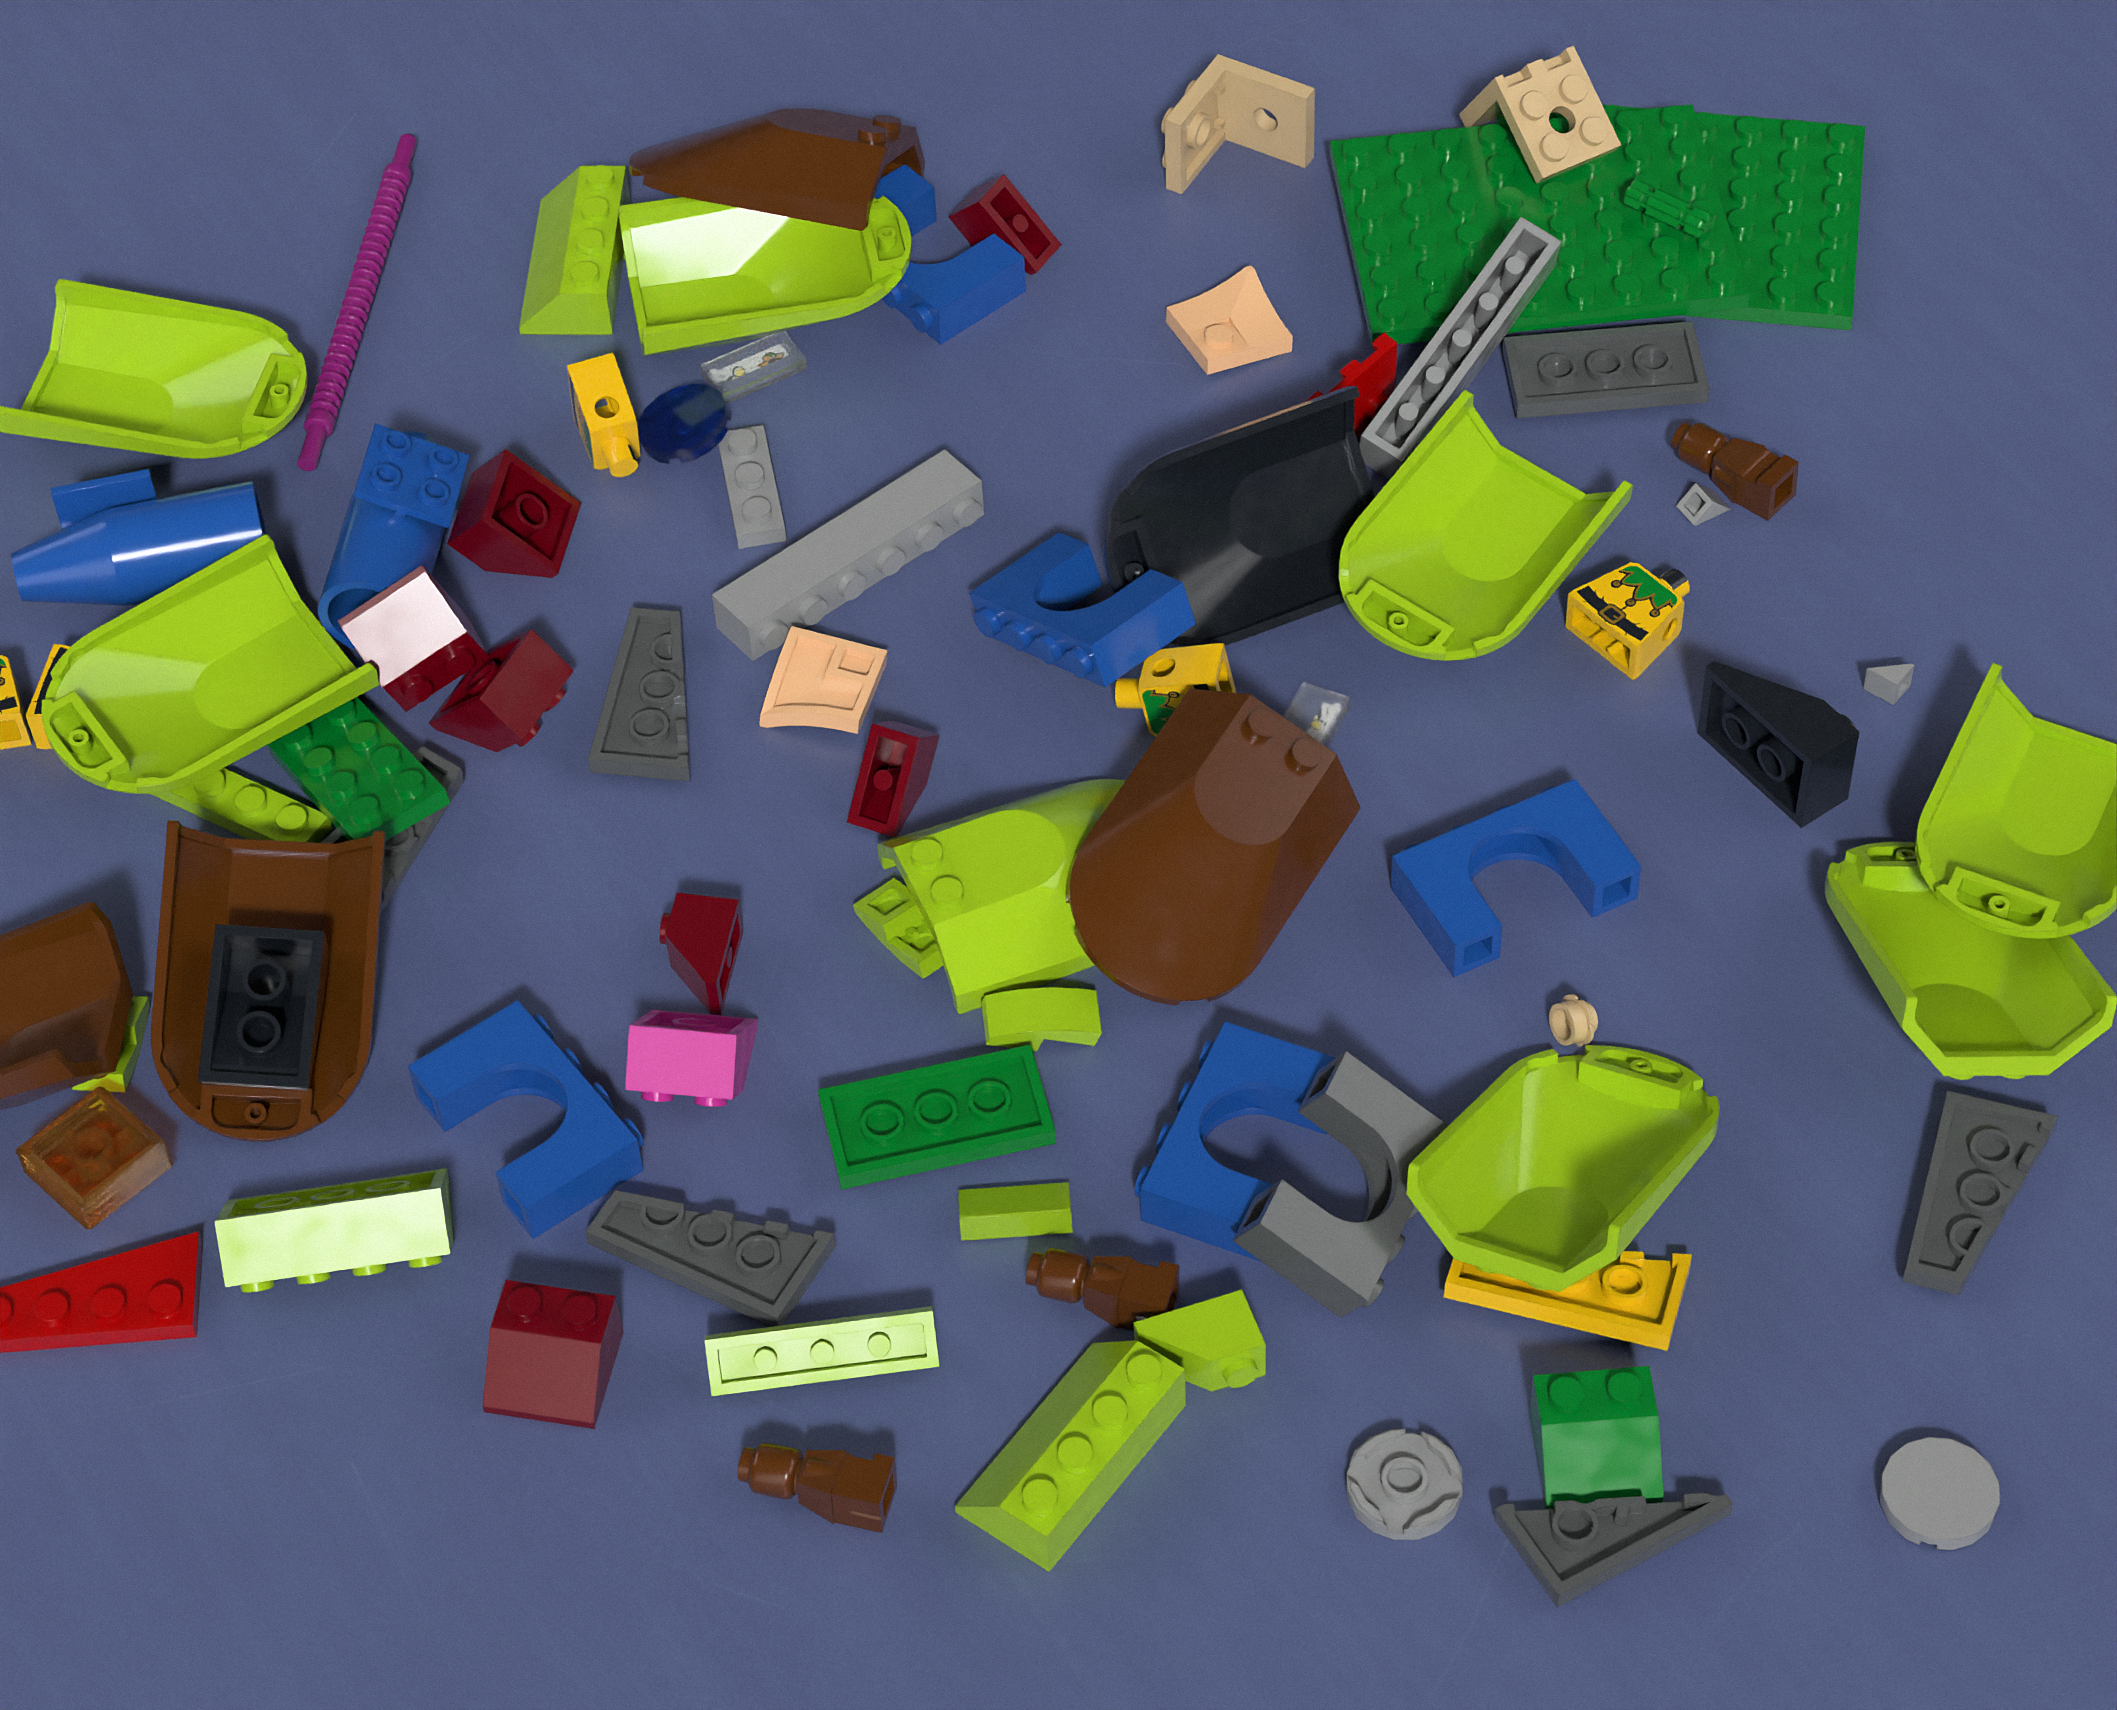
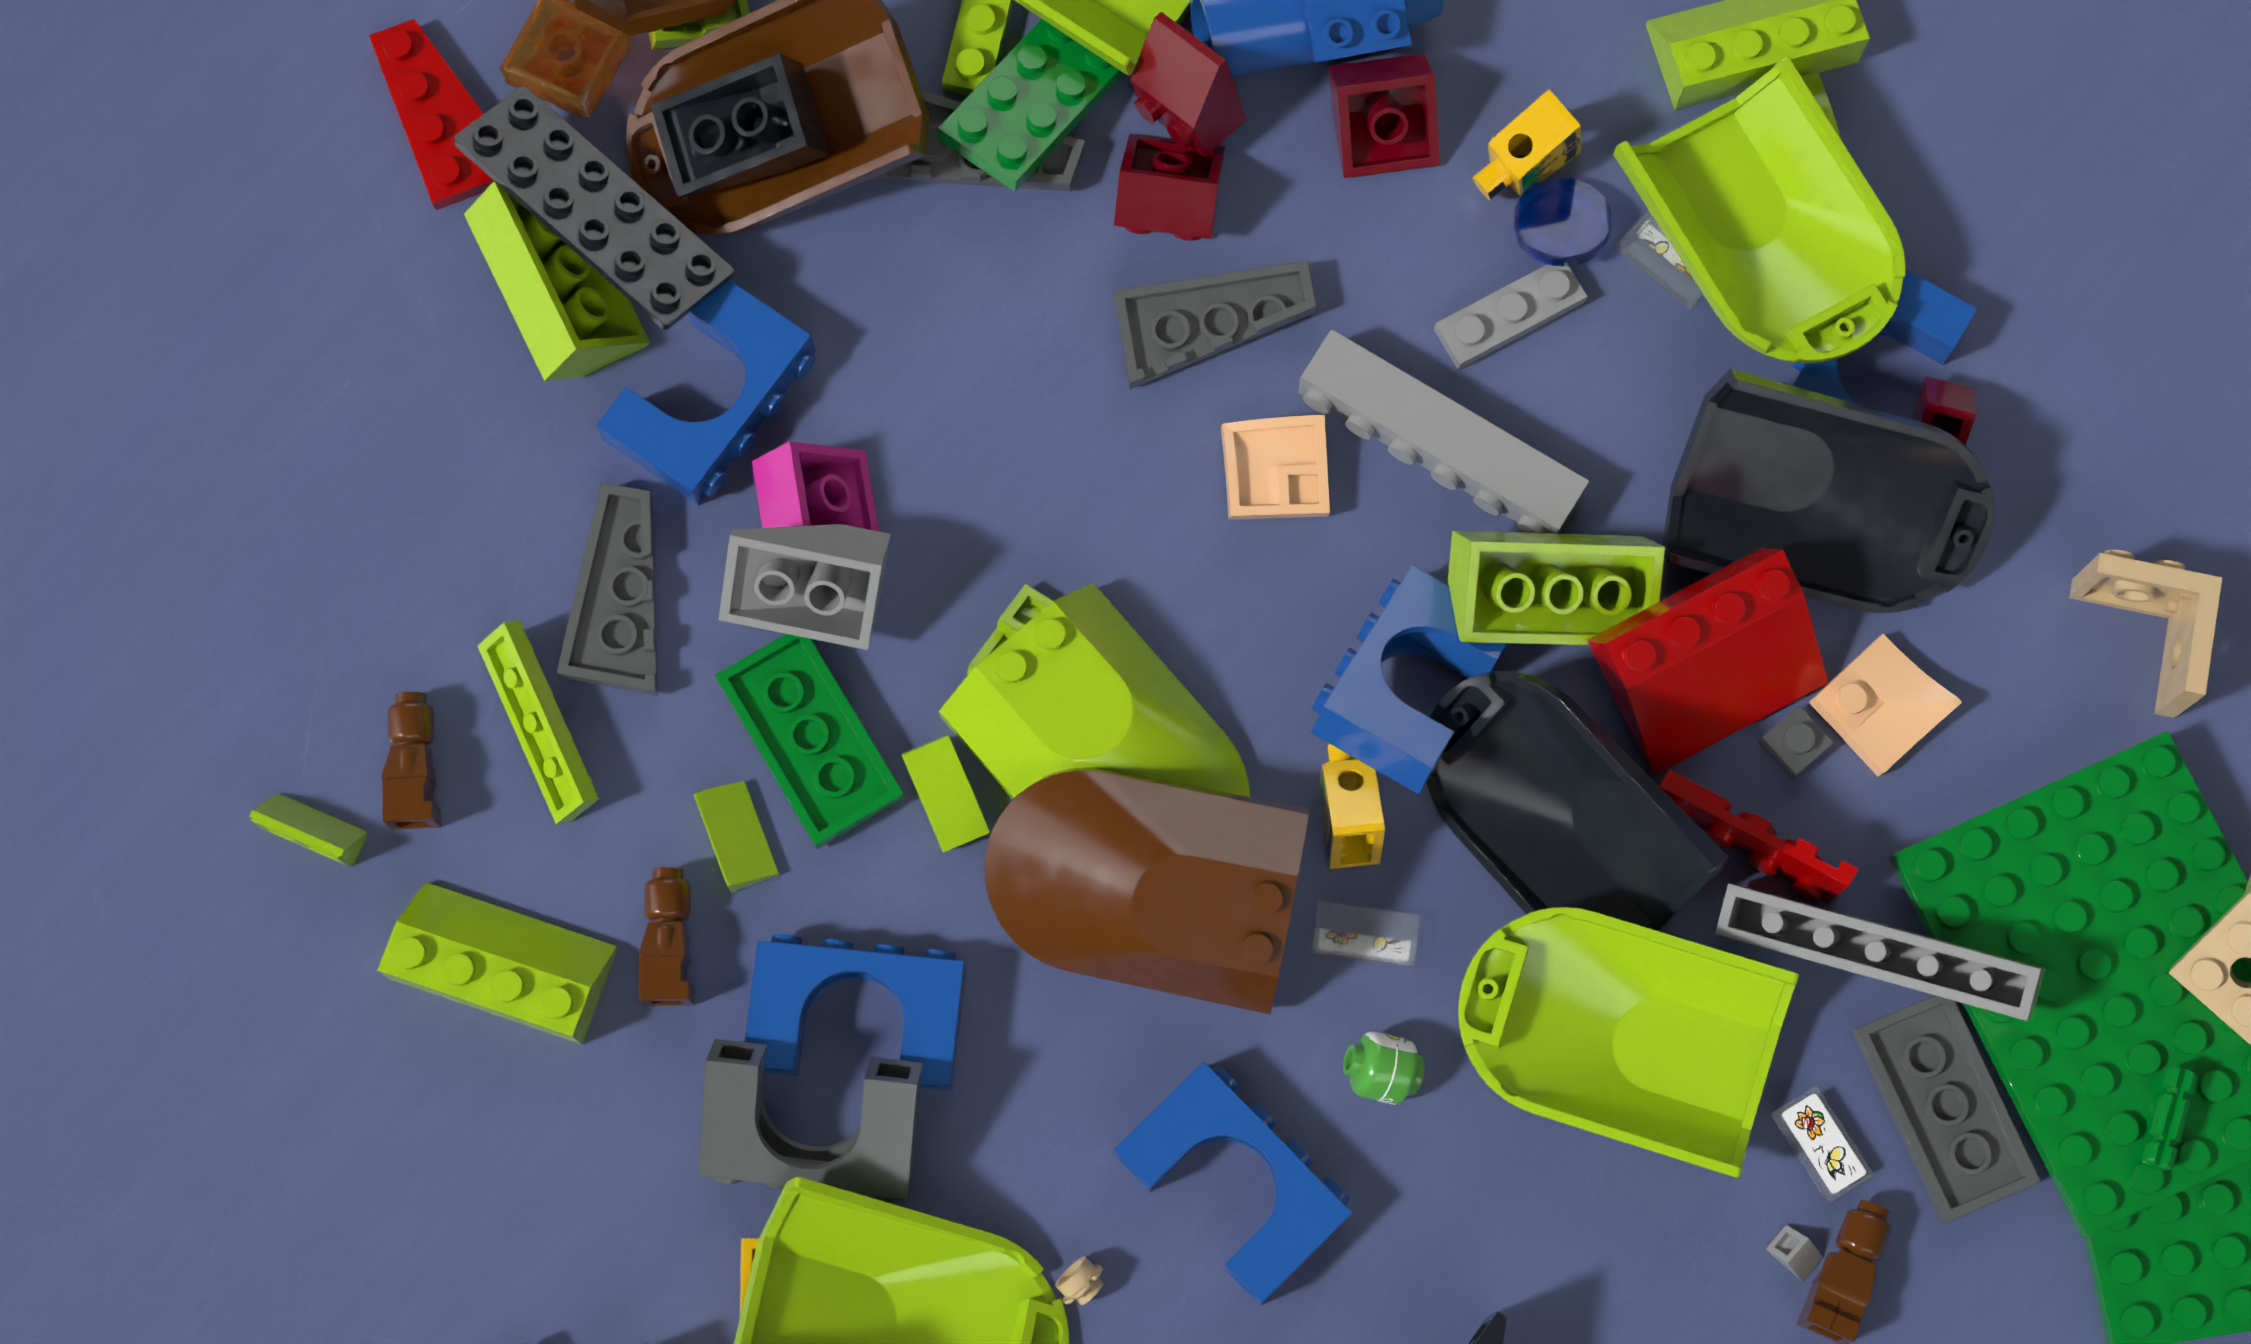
camera: 70 degrees right, 25 degrees up
(285, 1146) = (594, 207): none -> black bracket
(551, 1353) = (476, 500): dark red slope -> none
(703, 944) = (931, 470): dark red slope -> none
(786, 164) = (1906, 184): reddish brown windscreen -> none
(786, 1046) = (806, 581): none -> light grey slope
(855, 1605) = (310, 828): none -> lime slope
(891, 776) = (1181, 568): dark red slope -> none
(1028, 294) = (1853, 495): none -> black windscreen
(1035, 494) = (1549, 584): none -> lime slope
(1130, 394) = (1711, 658): none -> red slope
(1210, 1340) = (630, 1048): lime slope -> none
(1240, 391) = (1796, 742): none -> dark grey plate
(1404, 1484) = (545, 1255): light grey tile -> none
(1441, 731) = (1384, 1067): none -> bright green head
(1612, 460) = (1822, 1144): none -> tile
(1629, 615) = (1605, 1215): yellow torso -> none

